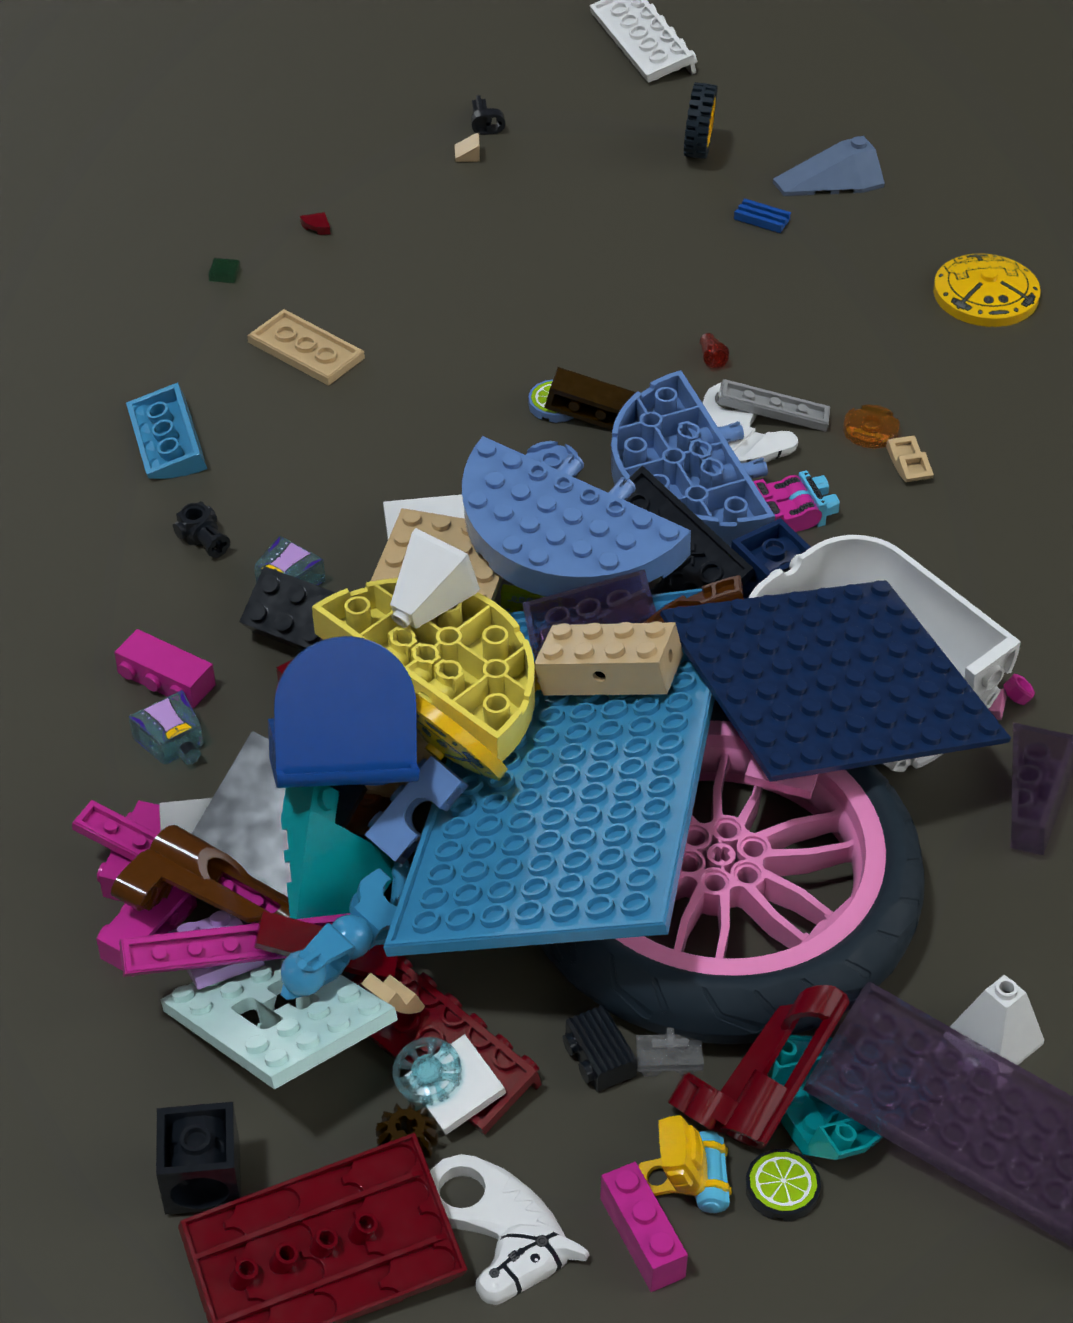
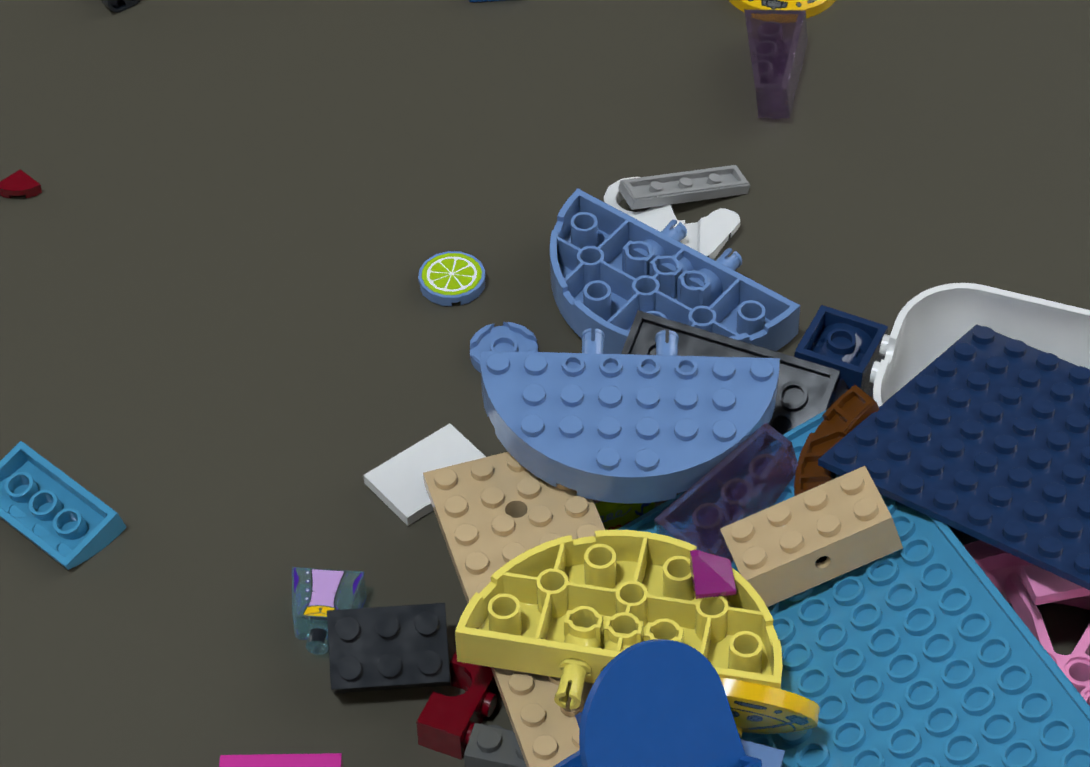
camera: 30 degrees left, 0 degrees up
(198, 526) = (181, 601): black connector -> none
(306, 347) = (124, 335): tan tile -> none
(431, 580) = (578, 538): white slope -> none
(468, 149) = (124, 33): tan slope -> none
(509, 646) = (711, 575): none -> magenta slope
(586, 398) = (497, 261): dark brown brick -> none
(714, 352) = (574, 154): clear red cone -> none
(800, 500) = (796, 275): hips -> none
(870, 426) = (789, 169): clear orange tile -> none
(908, 459) = (850, 187): tan slope -> none
(922, 343) = (776, 55): none -> clear purple wedge

